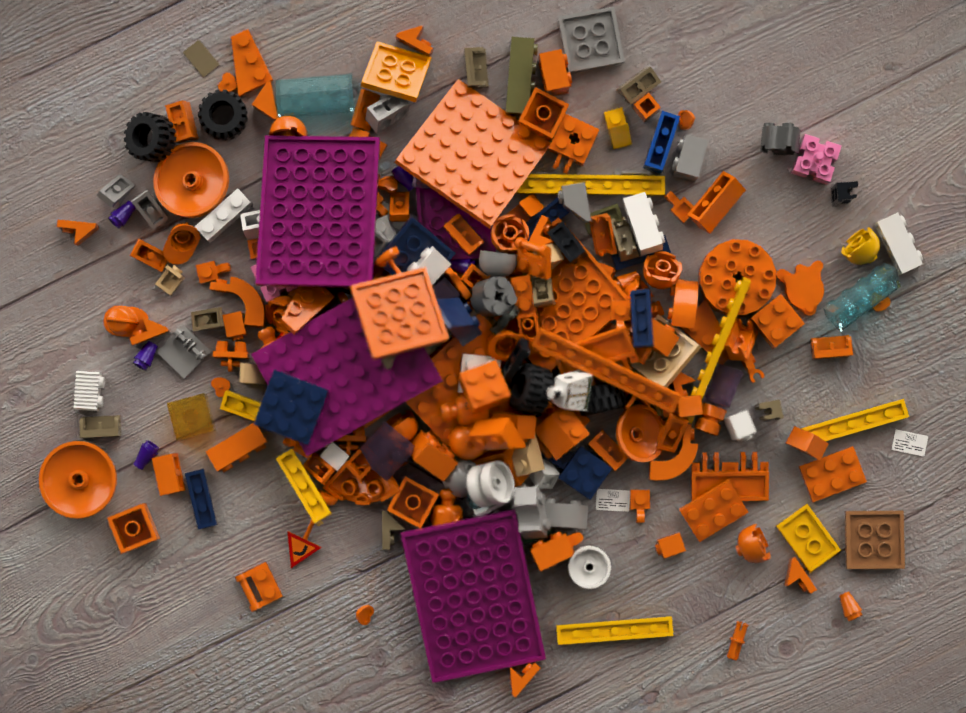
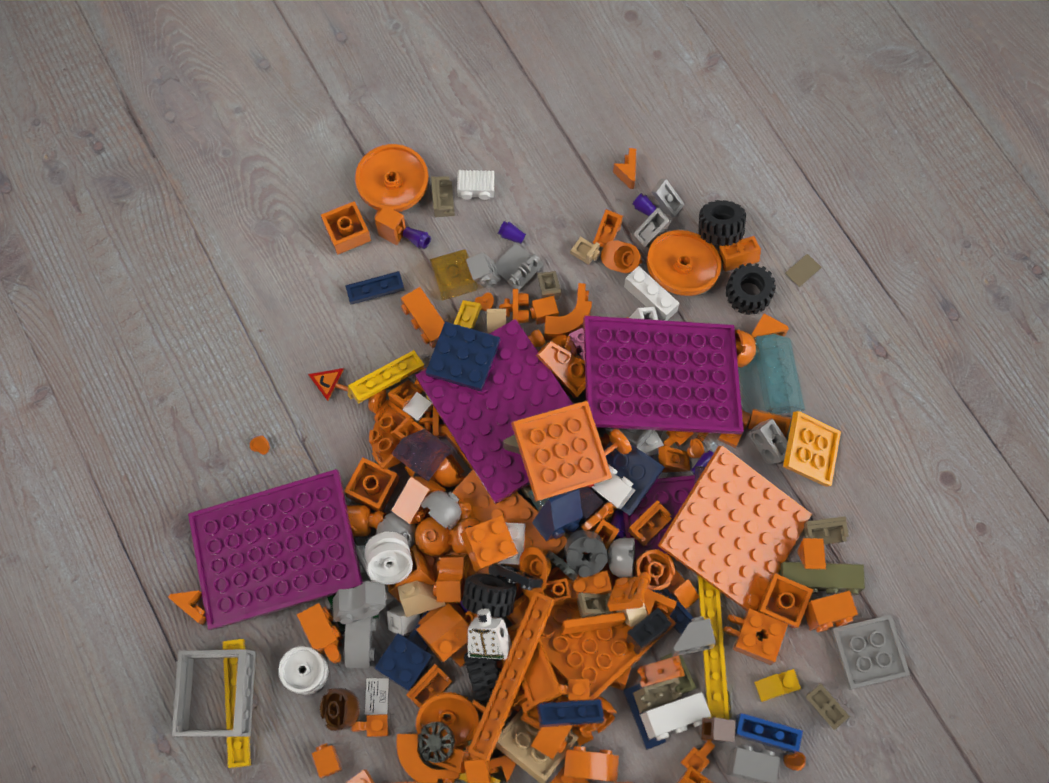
camera: 90 degrees right, 15 degrees down
(124, 320) = (543, 216): orange piece -> none
(134, 481) = (390, 224): none -> orange brick
(153, 330) = (535, 235): orange slope -> none
(168, 474) = (398, 257): orange hinge -> none
(192, 385) = (483, 270): none -> light grey brick
(209, 271) = (596, 286): orange plate -> none
(228, 82) = (782, 295): orange piece -> none
(249, 64) = (803, 312): orange wing -> none
(265, 584) = (292, 350): orange plate -> none
(389, 523) = (347, 462): dark tan slope -> none
(410, 38) = (848, 466): orange slope -> none
(448, 429) = (443, 508): none -> light grey cylinder
(495, 435) = (438, 557): orange slope -> none
(500, 83) = (812, 553): none -> orange slope
(559, 294) = (593, 623): none -> orange tile
(608, 620) = (243, 698): none -> light grey window
(625, 279) = (612, 696): orange cone -> none
(625, 532) = (339, 709): none -> reddish brown cylinder
(646, 107) = (804, 714): orange brick -> none
(658, 186) = (718, 730): none -> brick
(659, 443) = (436, 742): none -> pearl dark grey wheel
(662, 270) = (626, 738): orange cylinder -> none

